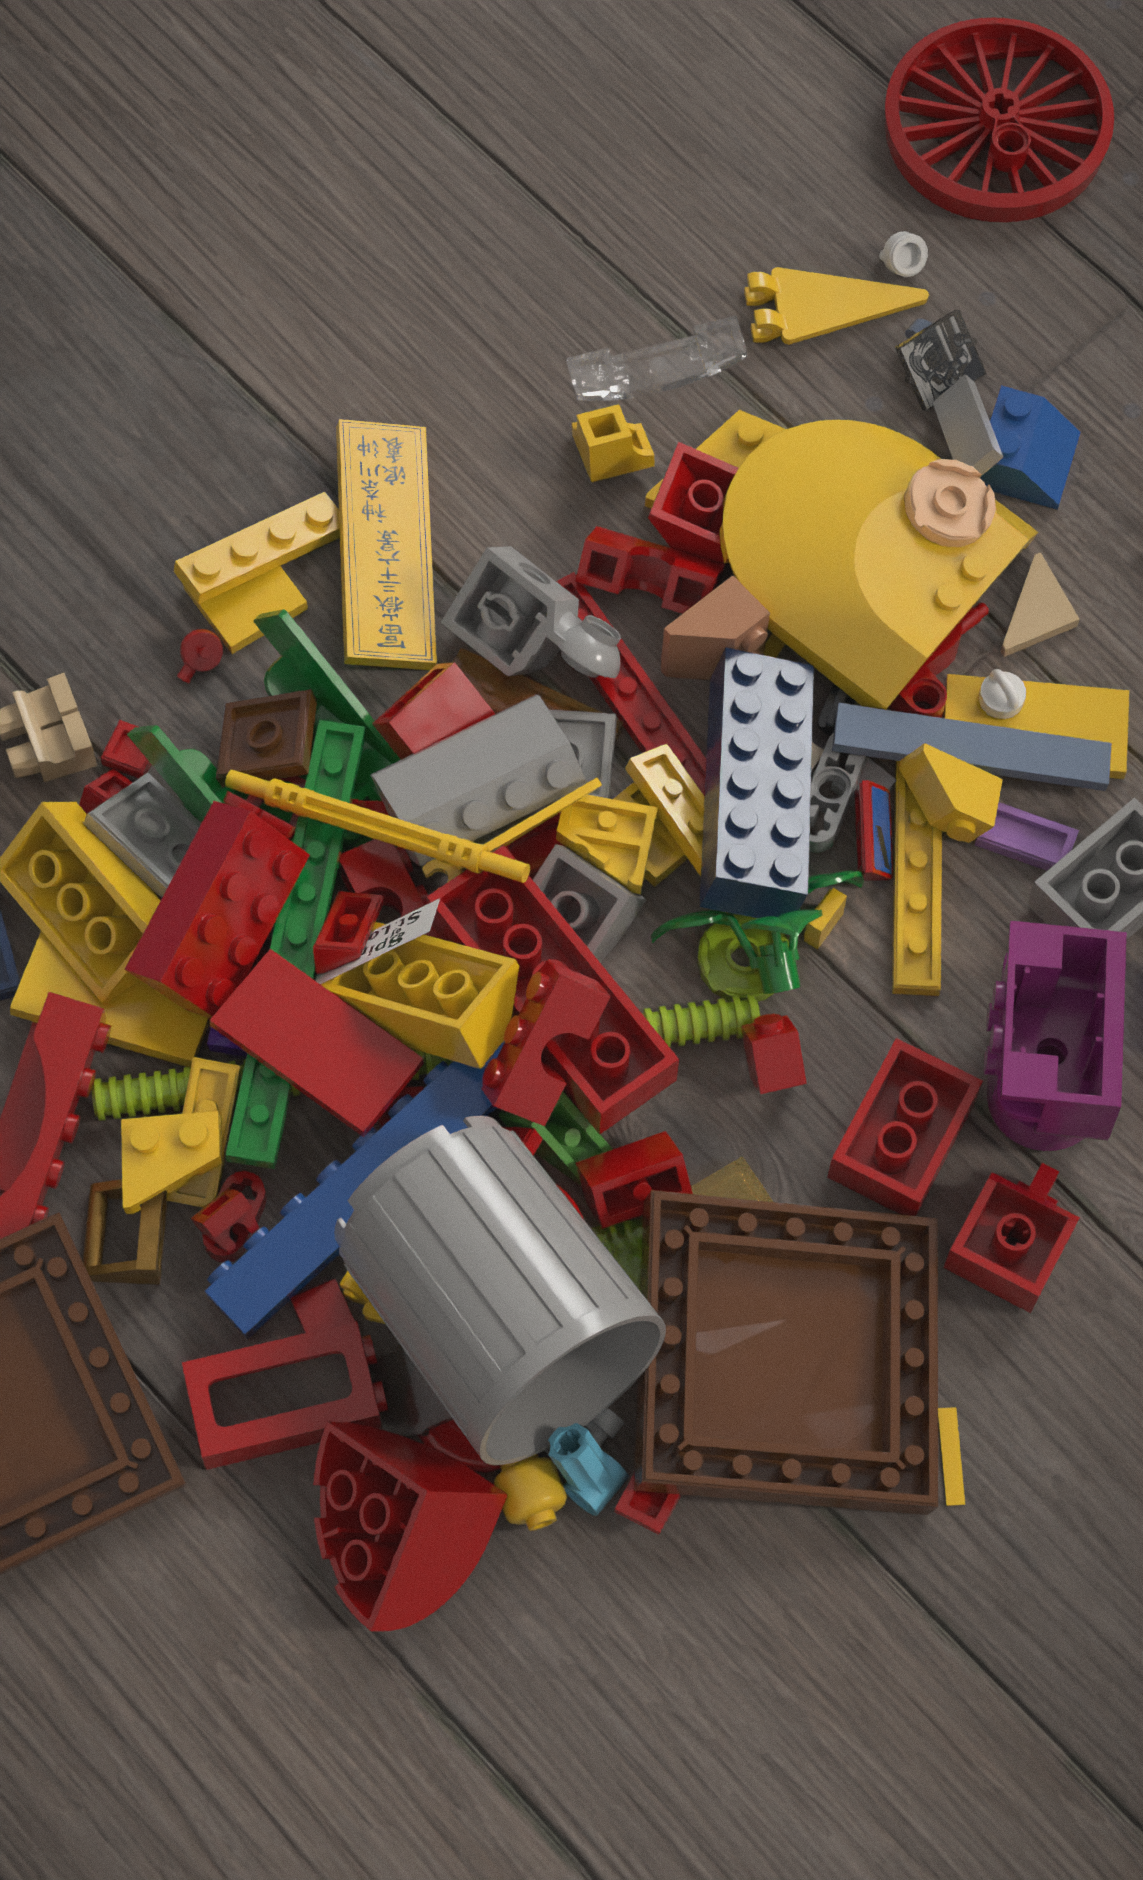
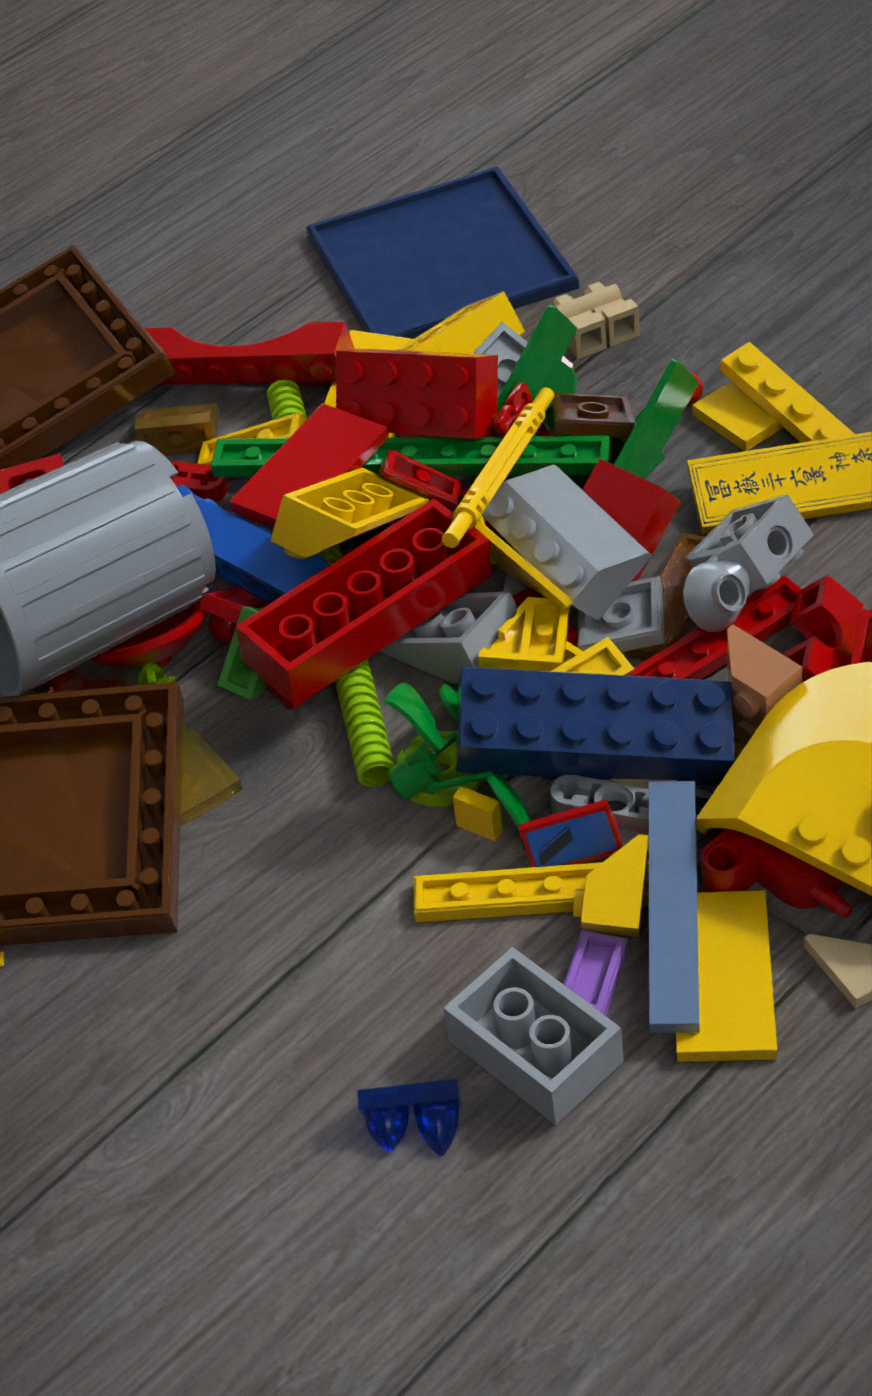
camera: 95 degrees right, 20 degrees down
(123, 753) = (593, 370): red tile -> none
(166, 1152) = (222, 413): yellow wing -> none
(222, 1214) = (181, 459): red tile -> none
(389, 937) = (396, 485): white sticker -> none
(555, 1005) = (308, 566): red arch -> none
(623, 1177) = (212, 699): red brick -> none
(773, 1053) = (330, 780): red brick -> none
(904, 1128) = (258, 882): red brick -> none
(1002, 694) = (743, 929): white tile -> none
(1020, 1212) = (149, 976): red hinge -> none
(1057, 1035) = (329, 966): magenta brick -> none

